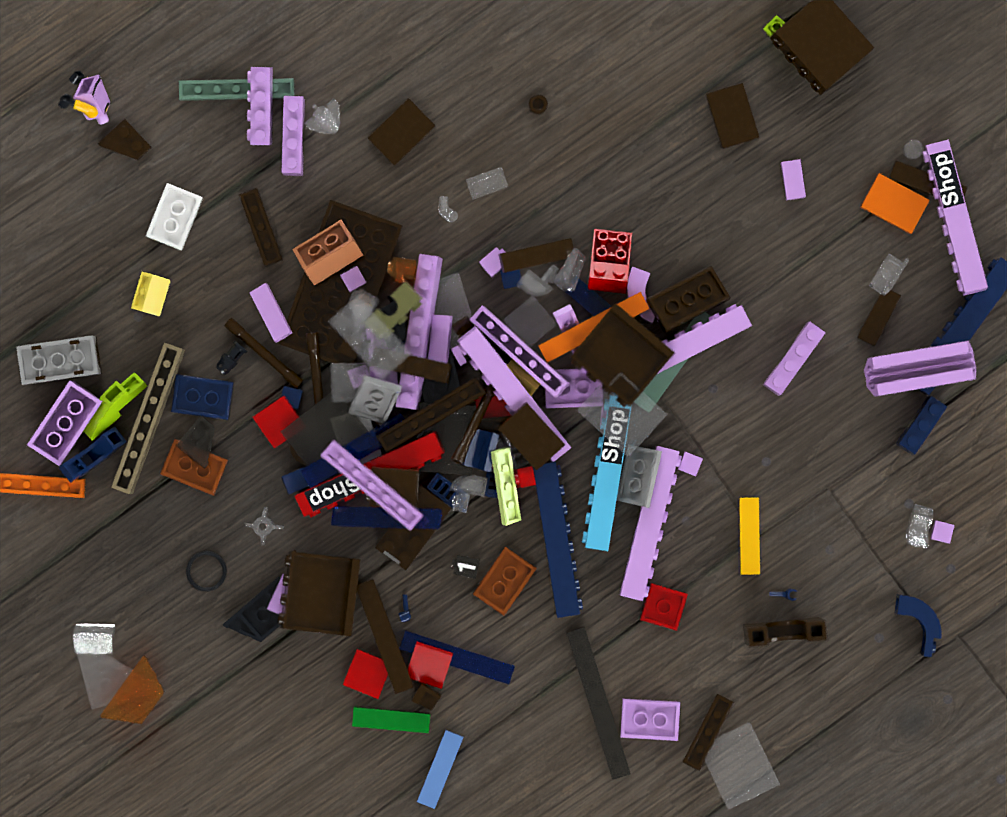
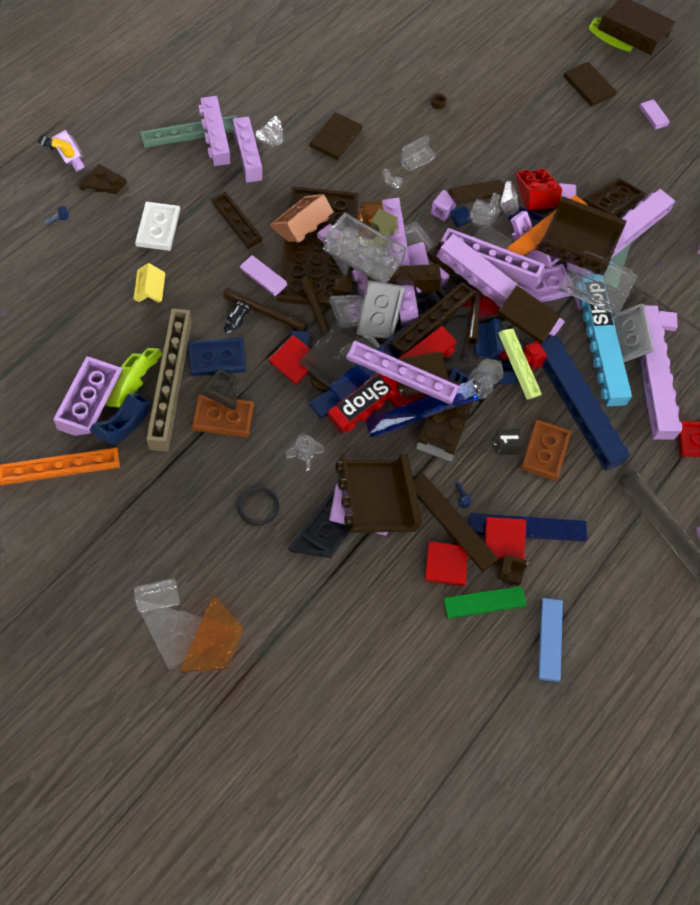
camera: 25 degrees left, 25 degrees down
(59, 360) = (68, 347): light grey piece -> none
(75, 179) = (62, 215): none -> dark blue hand

